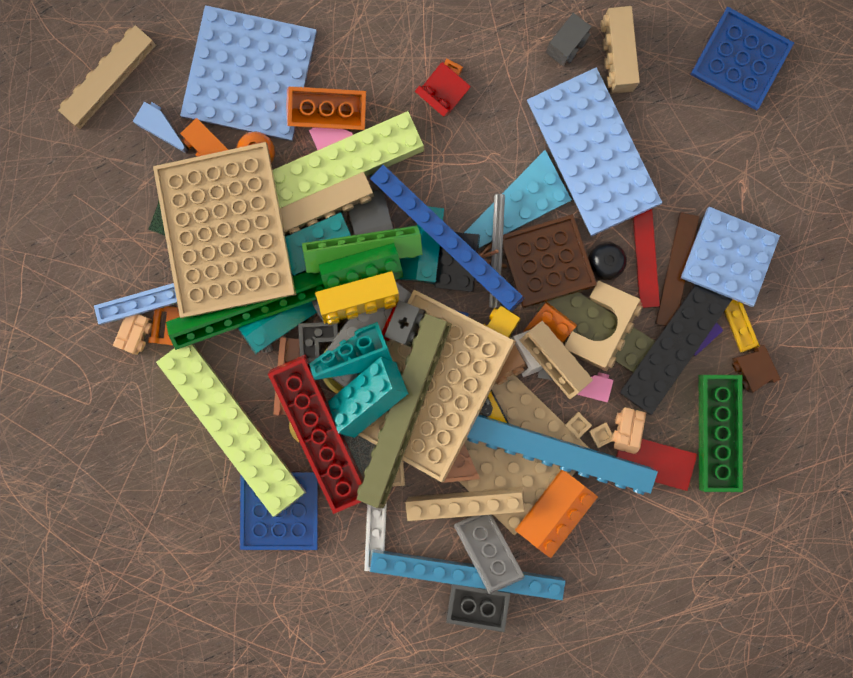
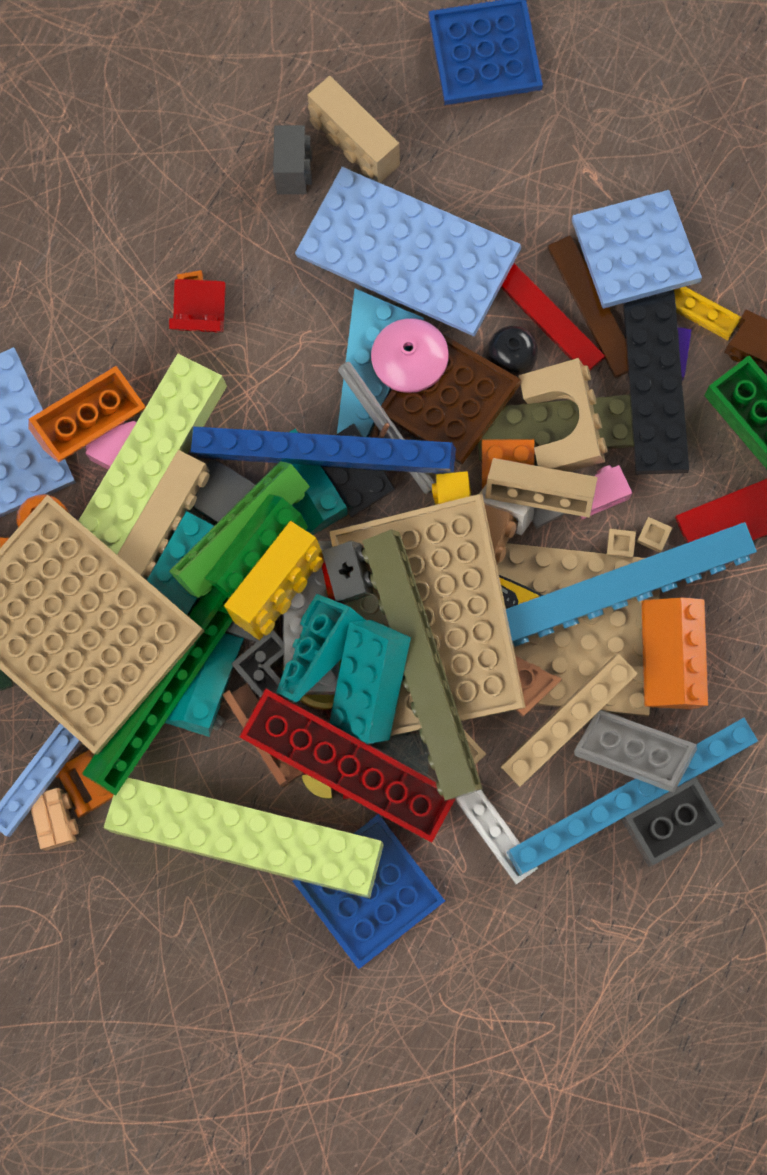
camera: 25 degrees left, 10 degrees down
(543, 230) = (412, 369): none -> bright pink dish
(629, 430) = (680, 505): light nougat brick -> none

